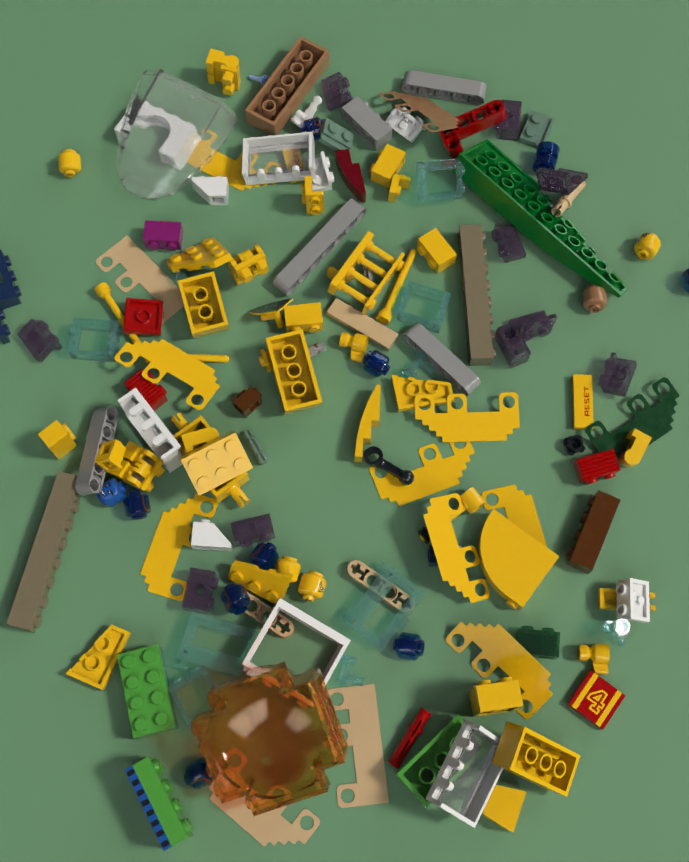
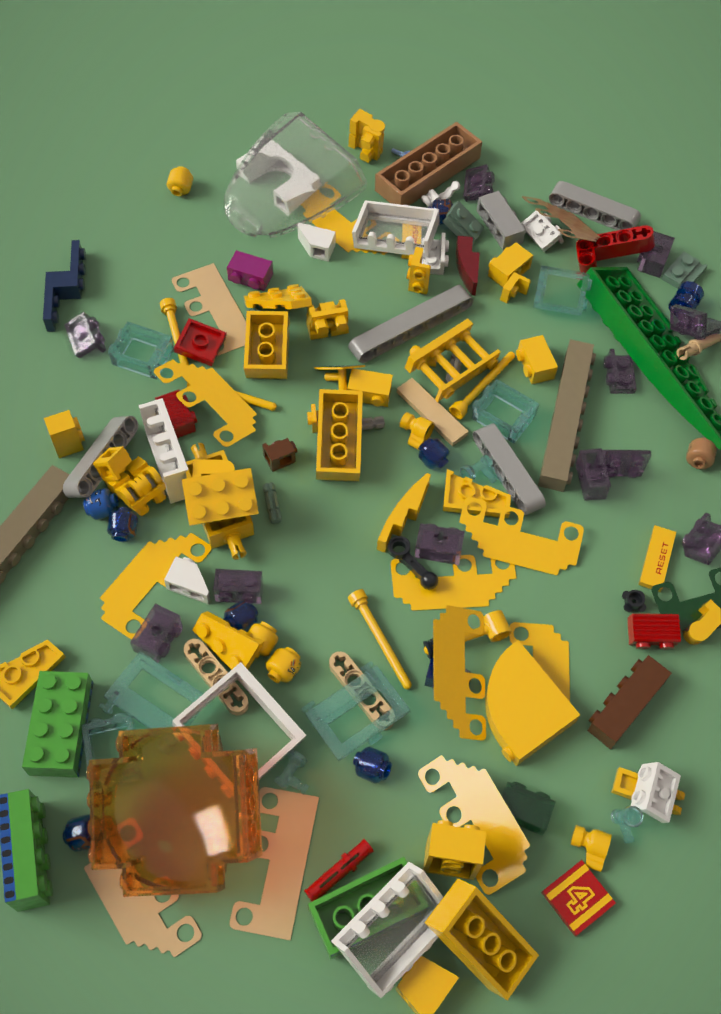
camera: 15 degrees right, 10 degrees down
(235, 598) = (192, 651): clear blue head -> none
(355, 512) = (359, 600): none -> yellow piece
(395, 445) = (429, 547): none -> clear purple brick

